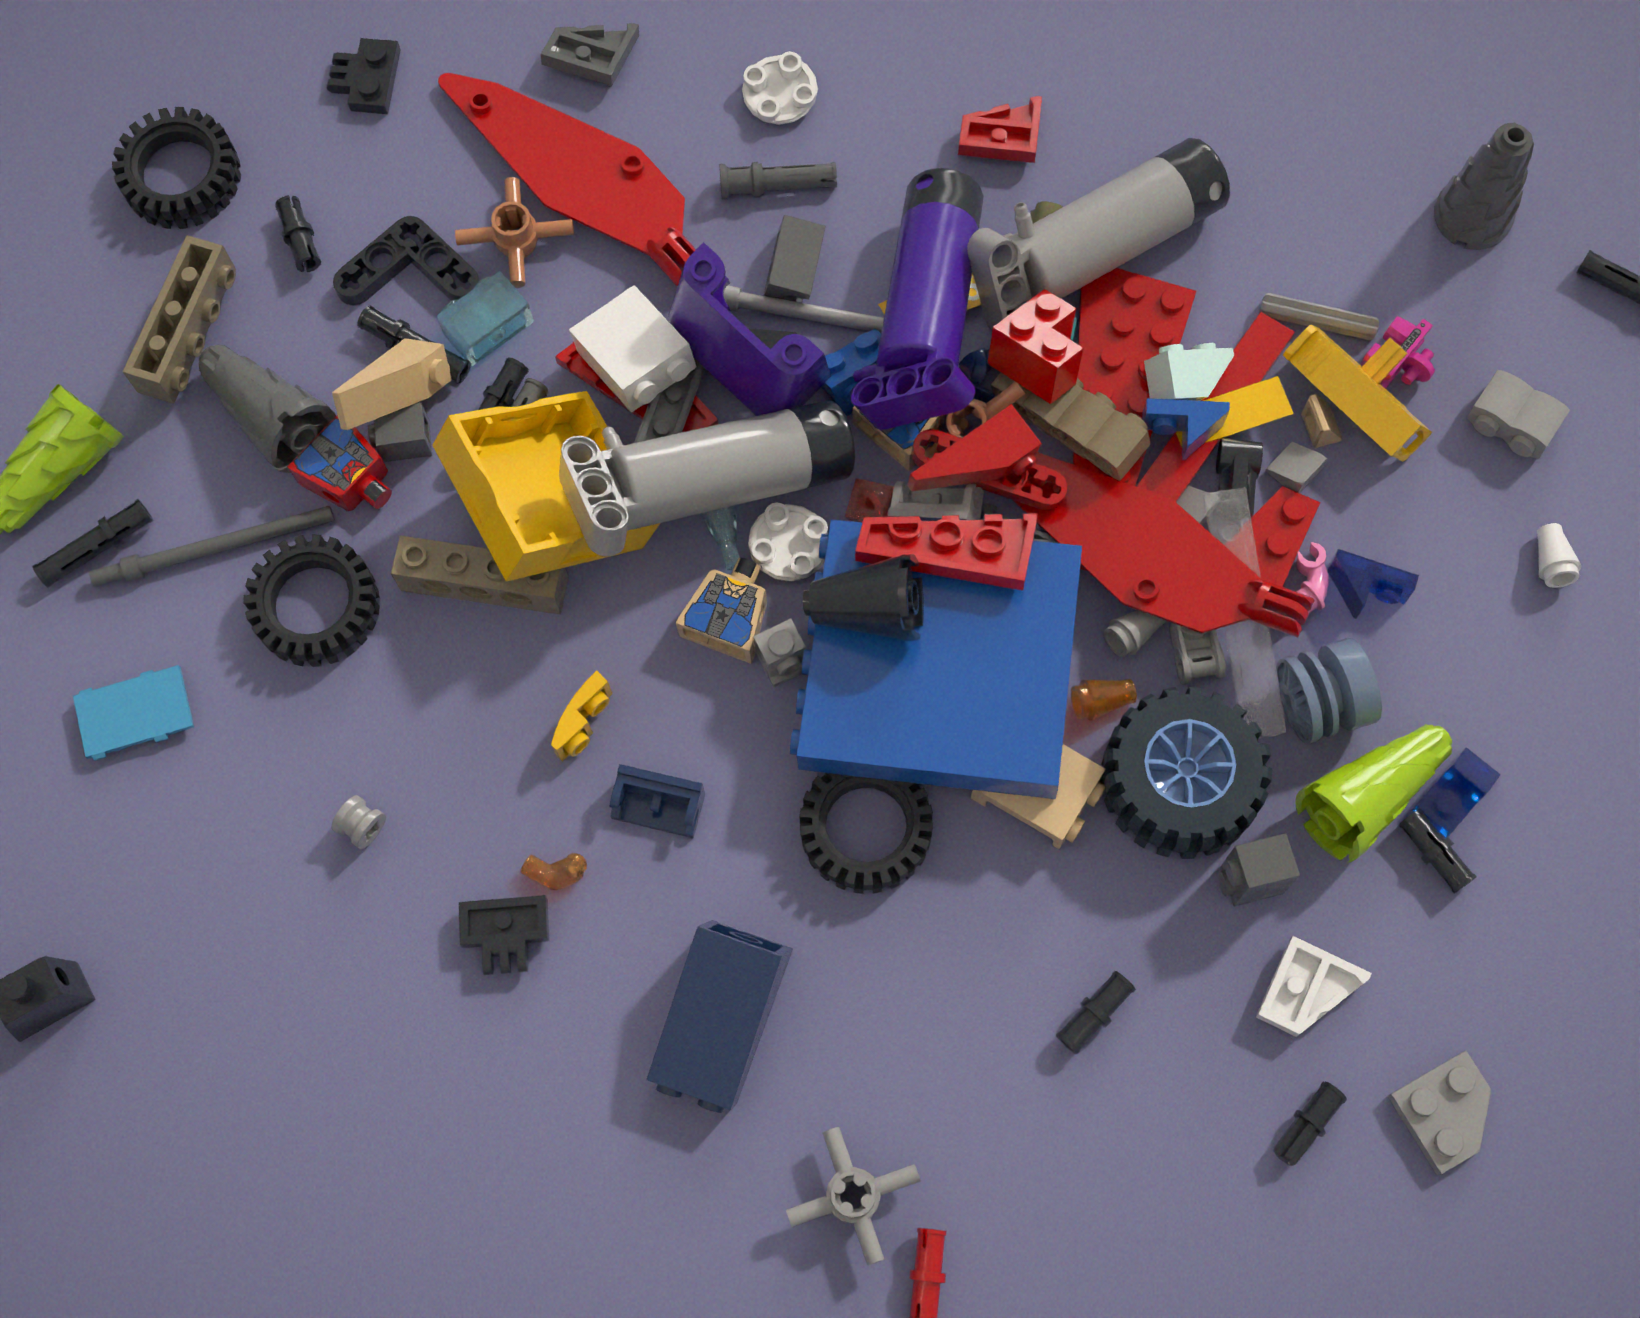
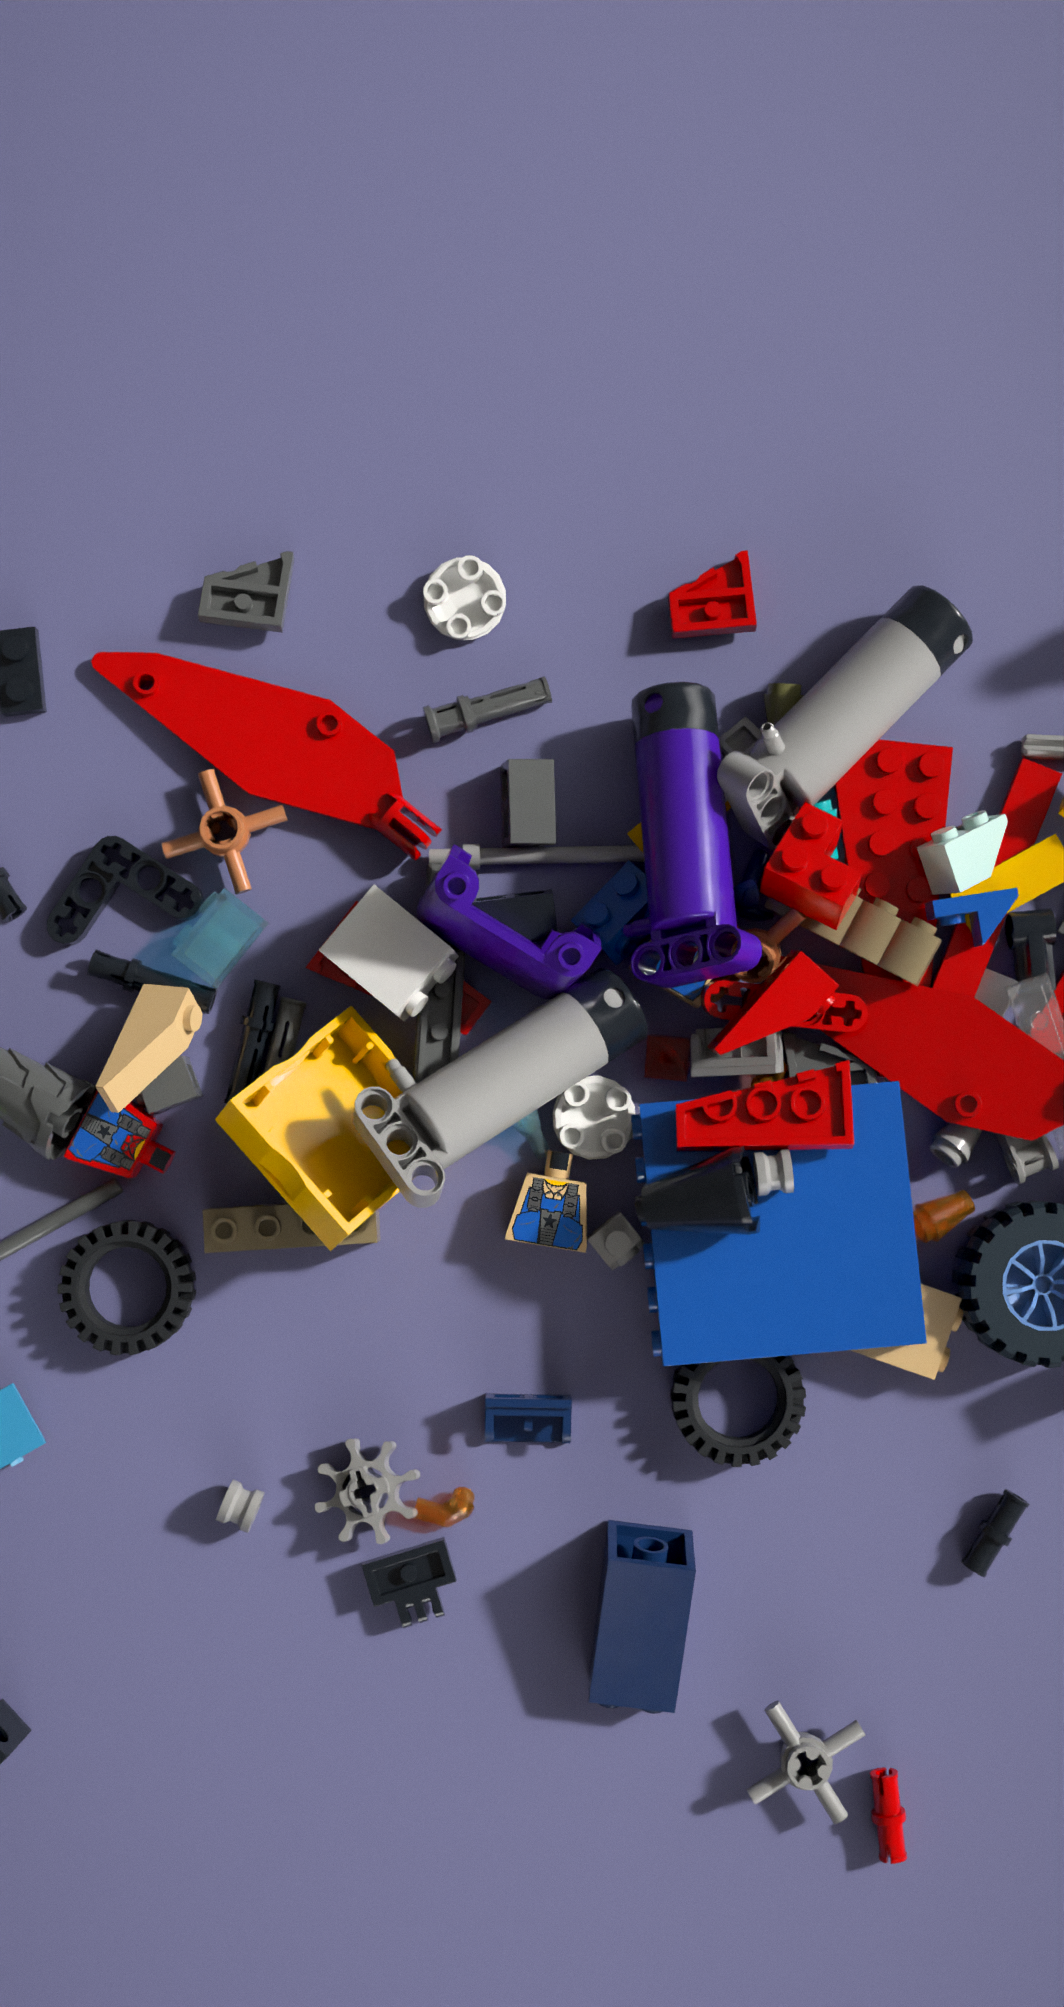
camera: 20 degrees left, 15 degrees up
(496, 840) = (372, 1508): none -> light grey gear
(573, 729) = (428, 1361): yellow slope -> none
(941, 595) = (773, 1172): none -> light grey wheel

